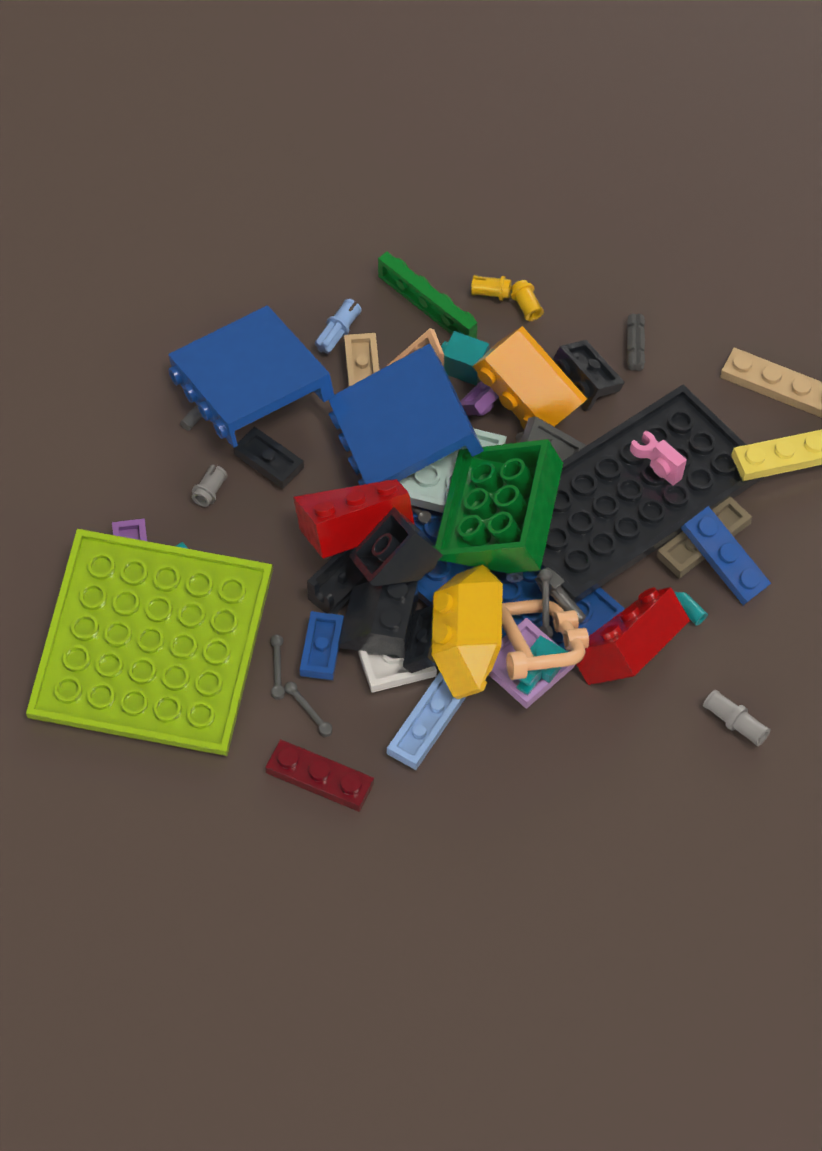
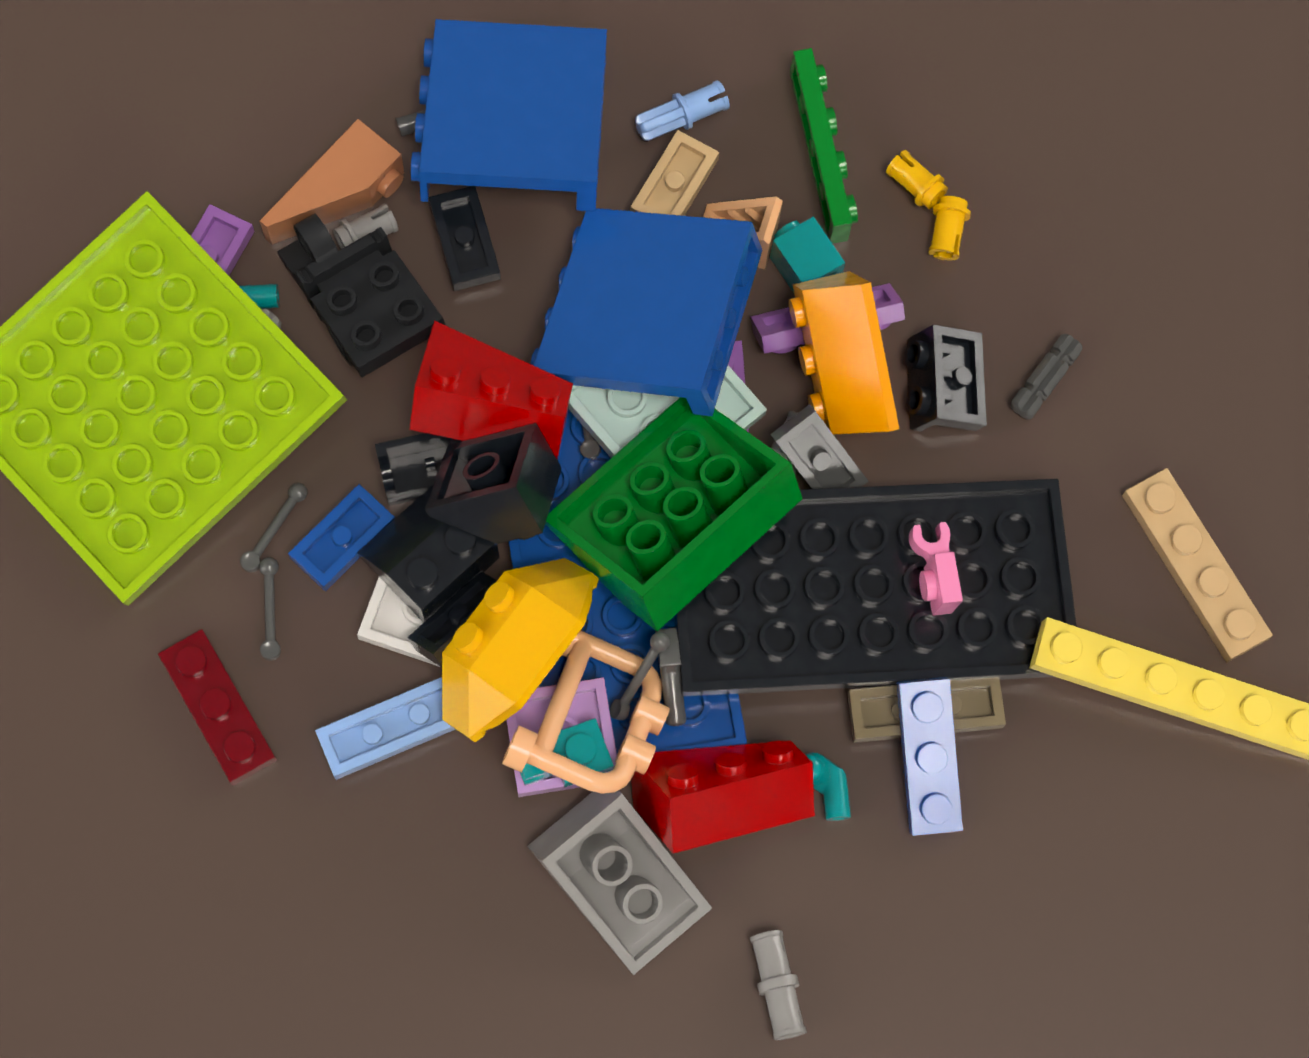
camera: 30 degrees right, 15 degrees up
(178, 470) = (341, 183): none -> nougat slope
(236, 516) = (360, 294): none -> black plate
(609, 716) = (620, 877): none -> light grey slope

